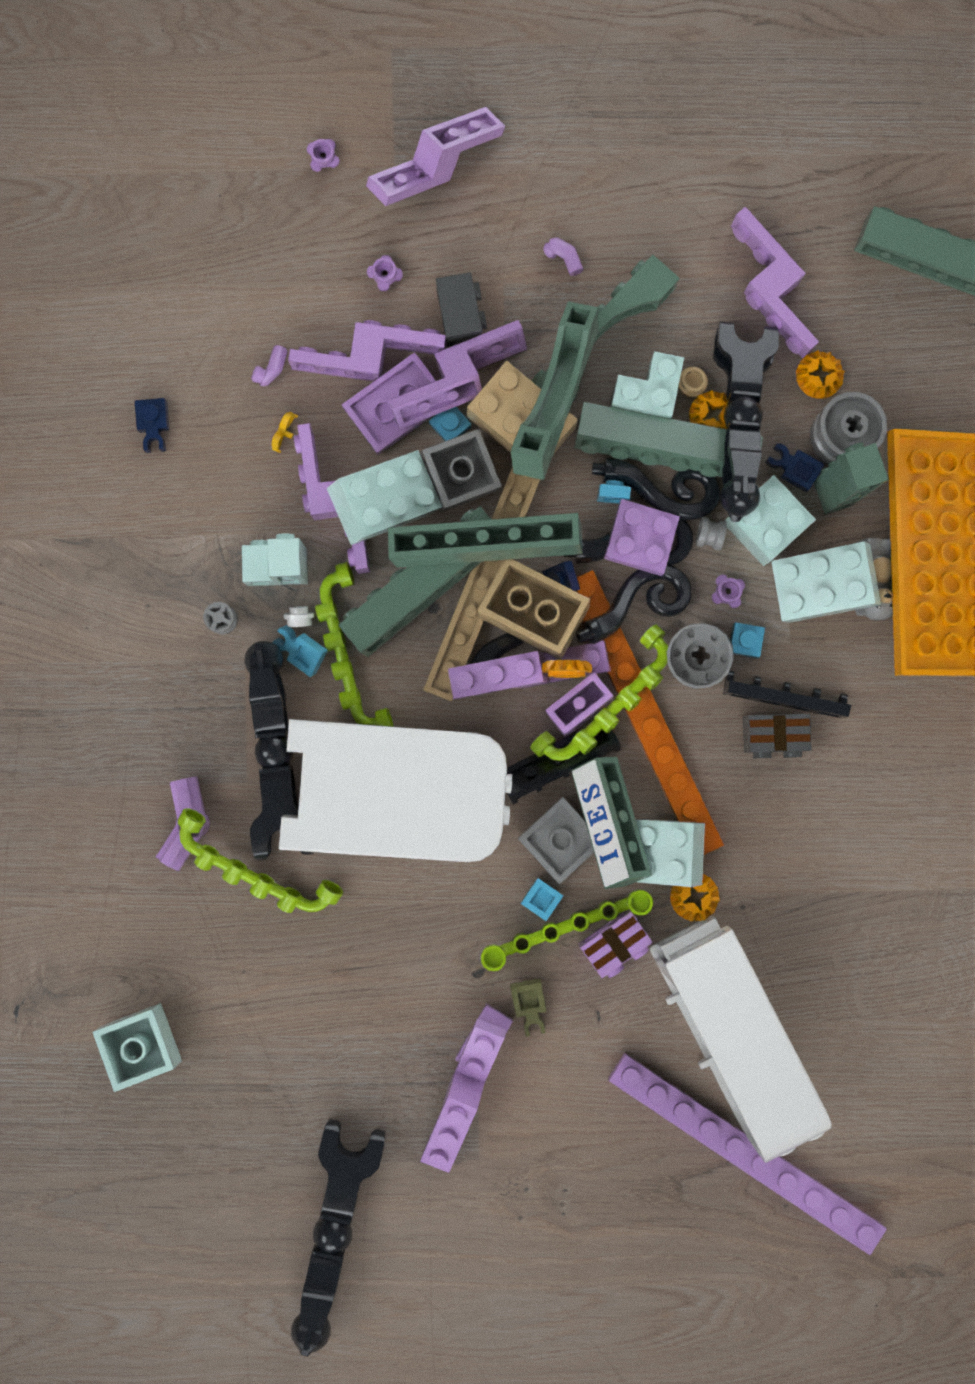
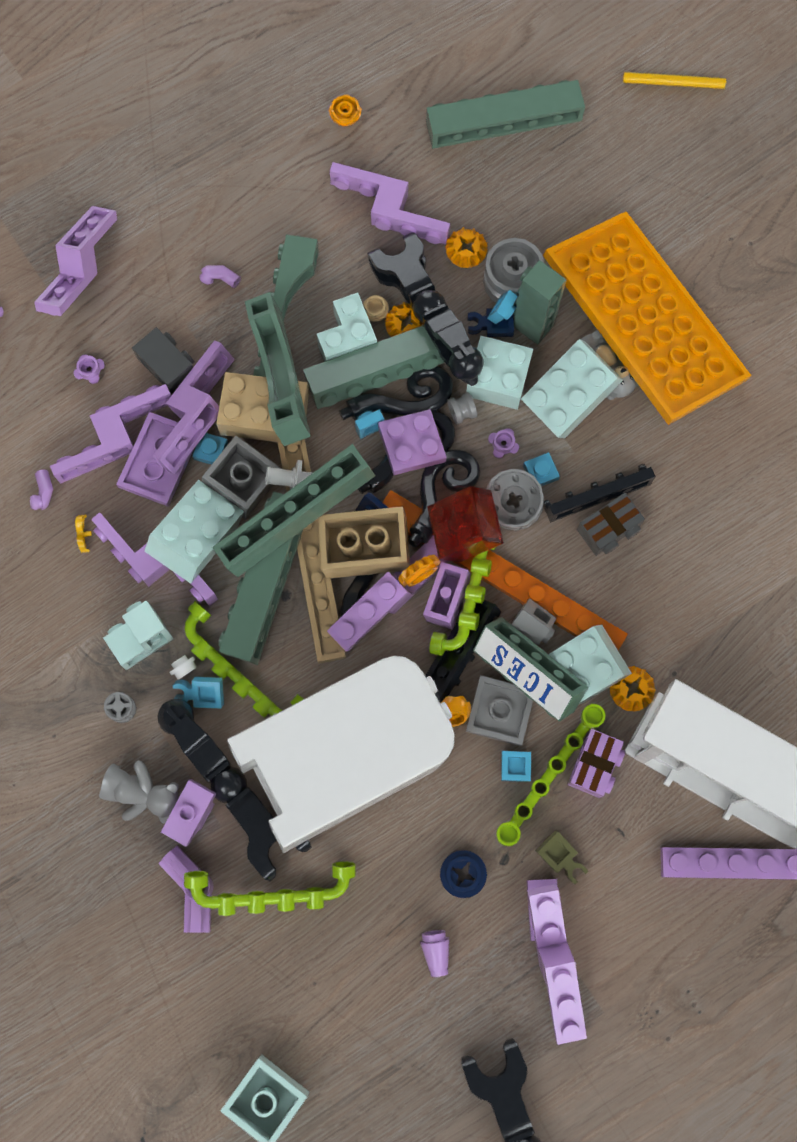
camera: 30 degrees left, 10 degrees down
(190, 707) = (139, 791): none -> light grey piece
(222, 755) = (189, 813): none -> lavender brick
(366, 1013) = (436, 952): none -> lavender cone
(429, 977) = (450, 879): none -> dark blue gear
(503, 502) = (286, 477): none -> white bracket
(521, 815) = (459, 709): none -> light orange plate
(637, 652) = (465, 524): none -> clear red brick
(643, 780) = (534, 622): none -> light grey brick
(792, 149) = (348, 104): none -> light orange plate
(814, 460) = (503, 308): none -> medium azure plate

